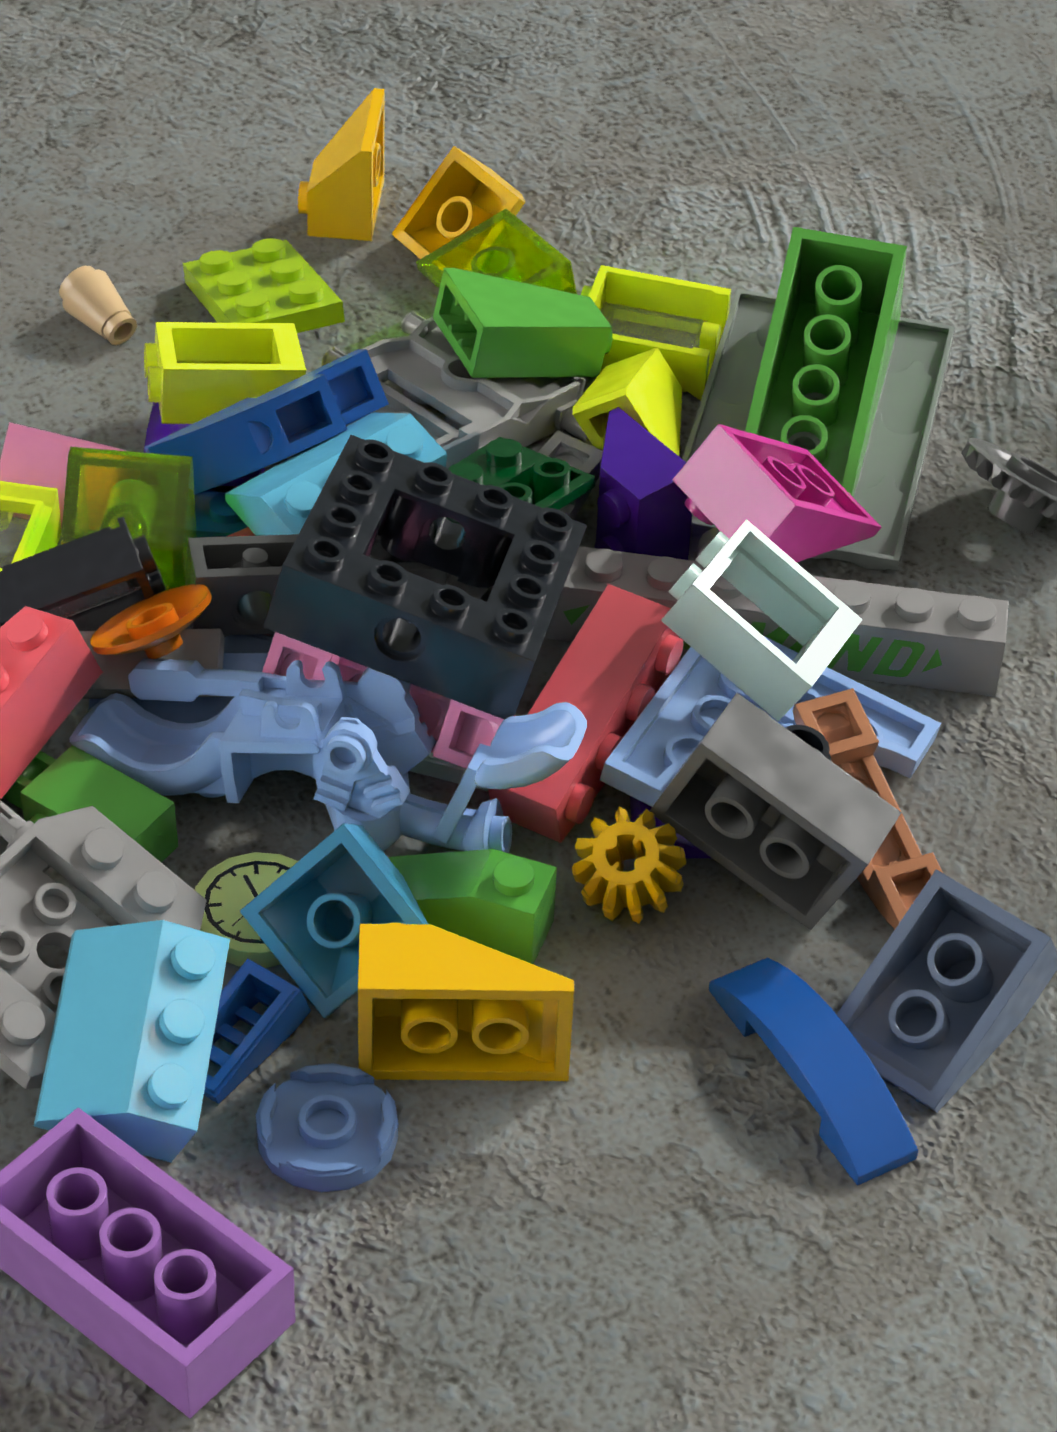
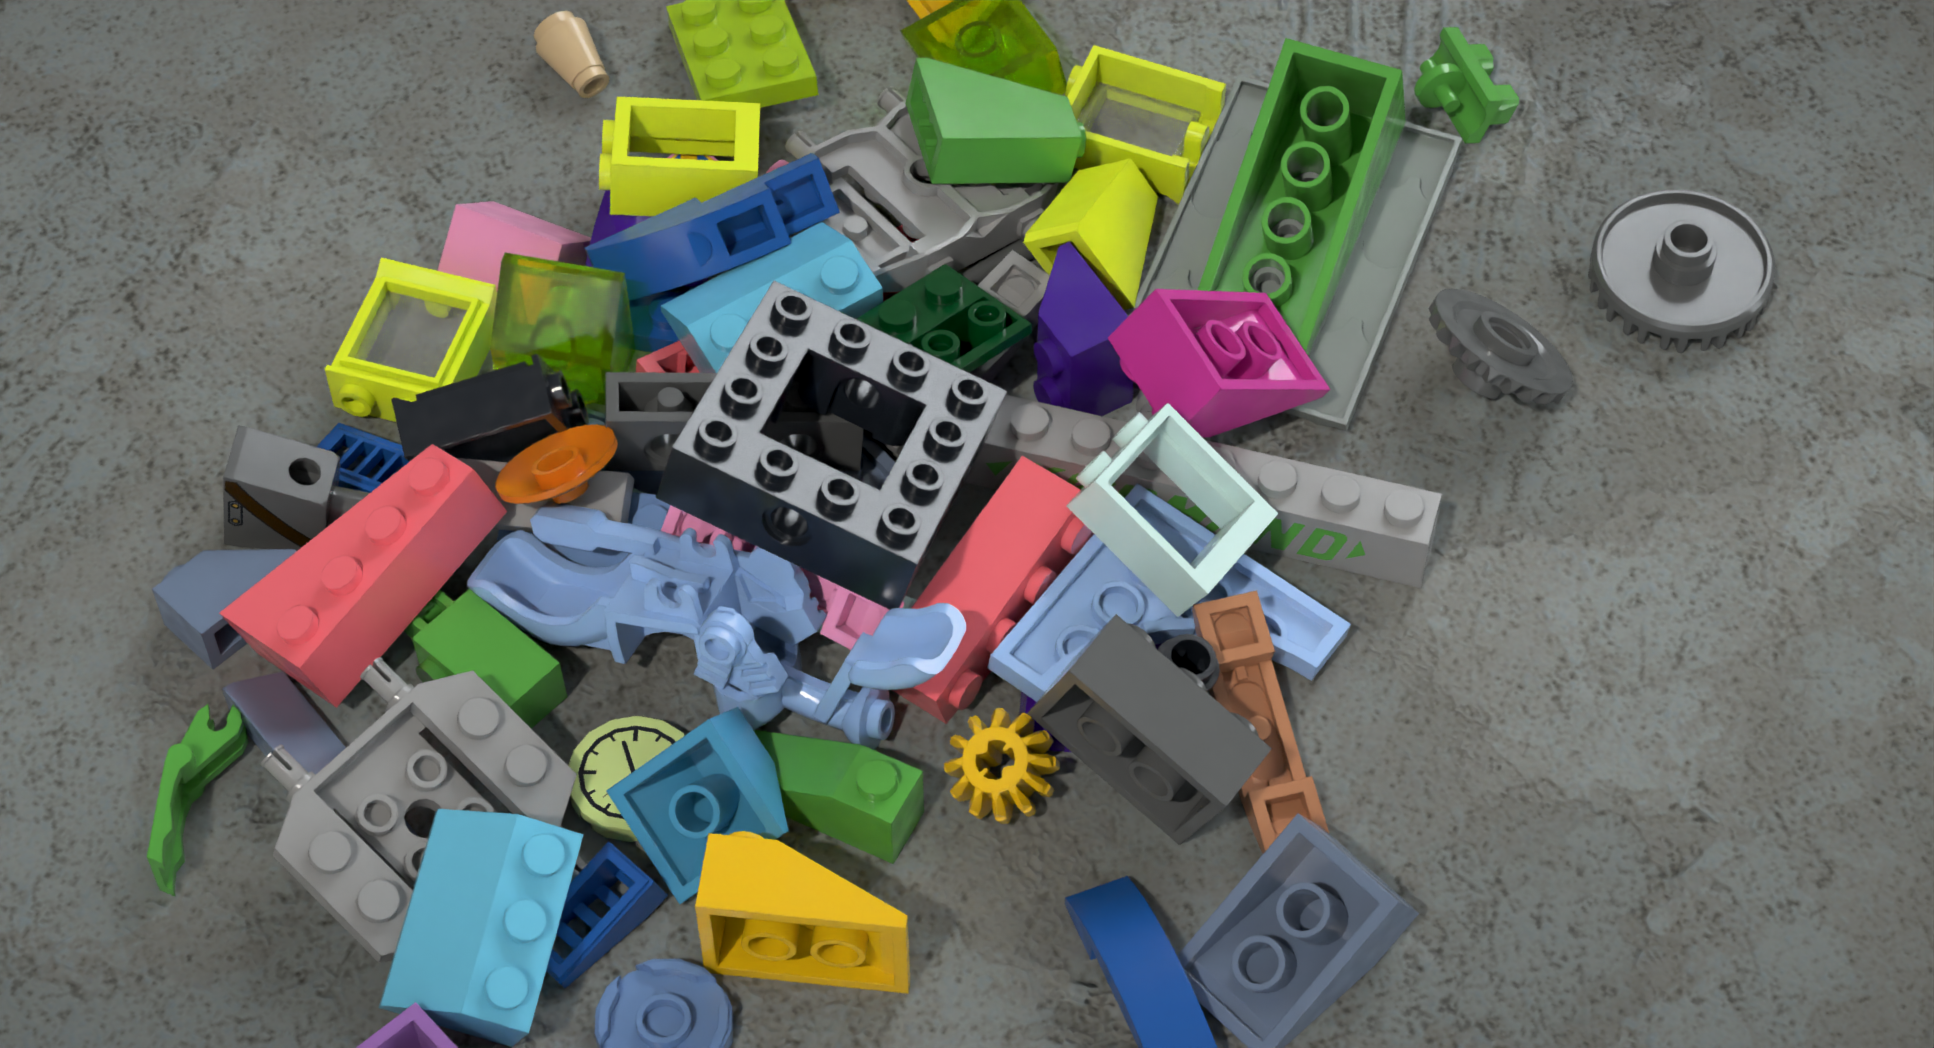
camera: 10 degrees right, 10 degrees up
(949, 286) = (1461, 84): none -> bright green hips

